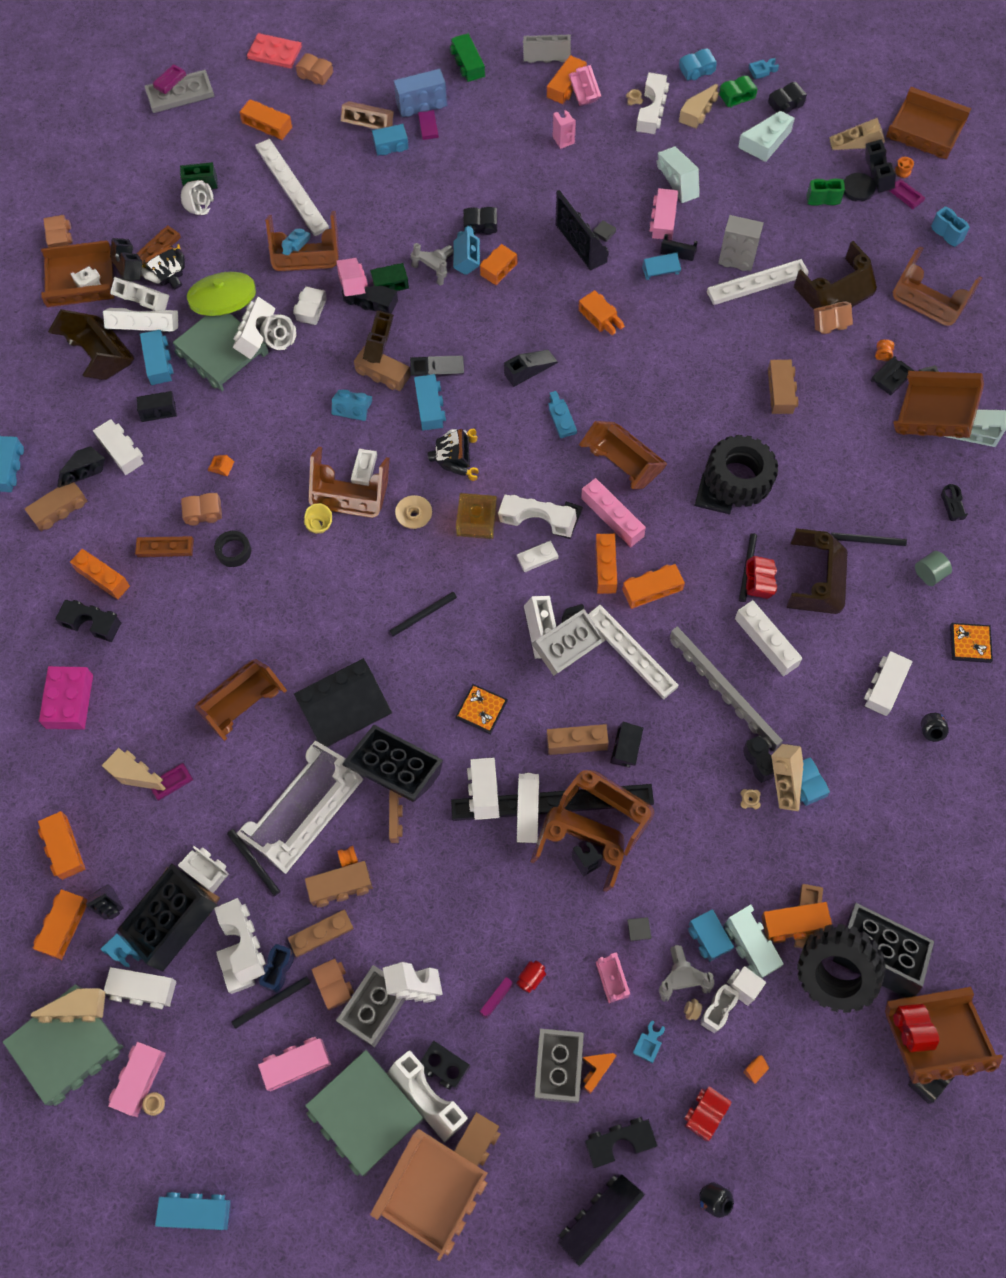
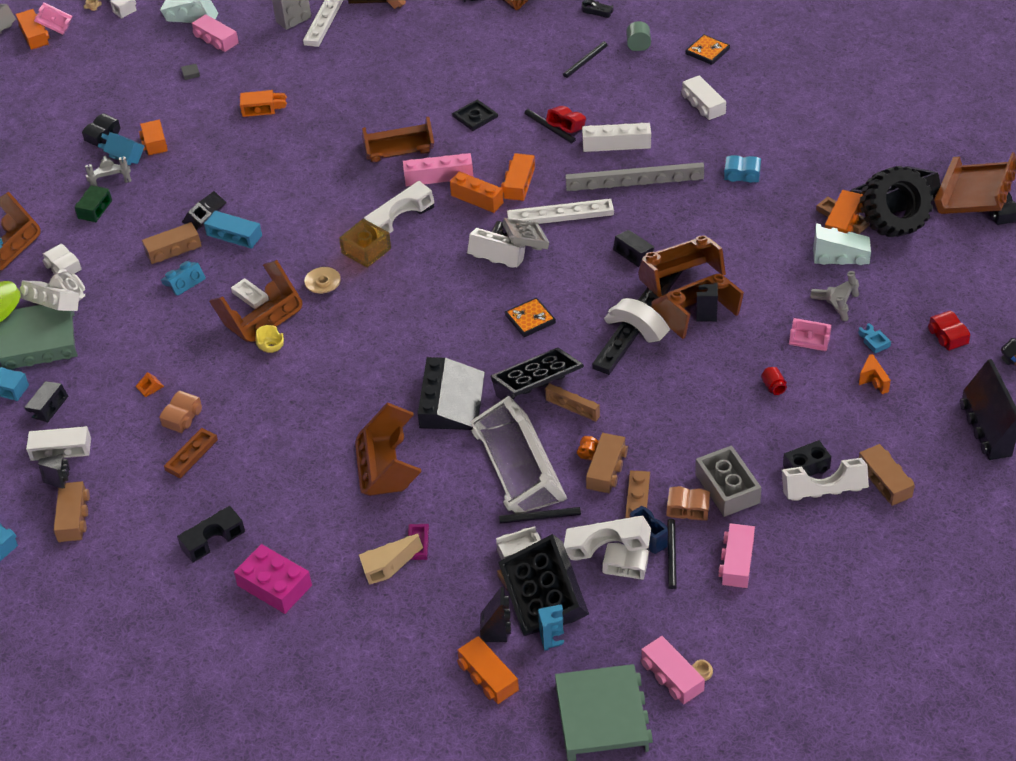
camera: 55 degrees left, 20 degrees down
(60, 845) = (412, 640): orange brick -> none
(77, 1004) = (580, 669): tan slope -> none
(100, 574) = (174, 505): orange brick -> none
(139, 988) = (591, 635): white brick -> none
(193, 1212) = (816, 676): dark azure brick -> none
(236, 560) = (242, 417): black tyre -> none
(351, 276) = (68, 219): bright pink brick -> none
(363, 1113) = (811, 527): sand green panel -> none
(374, 299) = (99, 221): black slope -> none
(378, 337) = (152, 224): dark brown arch -> none
(406, 983) = (733, 426): white arch -> none
(422, 614) = (416, 317): black bar -> none
(431, 1192) = (905, 506): nougat panel -> none
(454, 452) = (296, 233): torso -> none
(483, 788) = (602, 335): white brick -> none
(496, 998) = (775, 407): magenta tile -> none
(527, 365) = (263, 162): black slope -> none
(537, 556) = (431, 230): white plate -> none
(559, 1066) = (856, 391): light grey brick -> none
(561, 416) = (324, 164): dark azure hinge -> none
(564, 129) = (78, 46): bright pink hinge -> none
(577, 739) = (606, 270): medium nougat brick -> none
(579, 234) = (181, 75): black slope -> none
(601, 1146) = (936, 397): black arch -> none
(639, 929) = (782, 307): dark grey tile -> none
(661, 265) = (257, 54): dark azure hinge -> none
(683, 250) = (252, 41): black hinge -> none
(693, 1009) = (866, 303): tan plate -> none
(710, 935) = (818, 269): dark azure brick -> none
(718, 1011) = (877, 286): white brick -> none
(746, 452) = (473, 87): black tyre -> none
(747, 984) = (871, 262): white brick -> none
(754, 794) = (730, 204): tan plate -> none
(756, 1069) = (932, 291): orange slope -> none
(758, 756) = (706, 183): black brick -> none
(782, 387) = (424, 42): medium nougat brick -> none
(788, 775) = (734, 170): tan slope -> none
(827, 596) = (612, 95): dark brown windscreen -> none
(916, 1028) = (963, 191): red brick -> none
(934, 727) = (755, 90): black head -> none

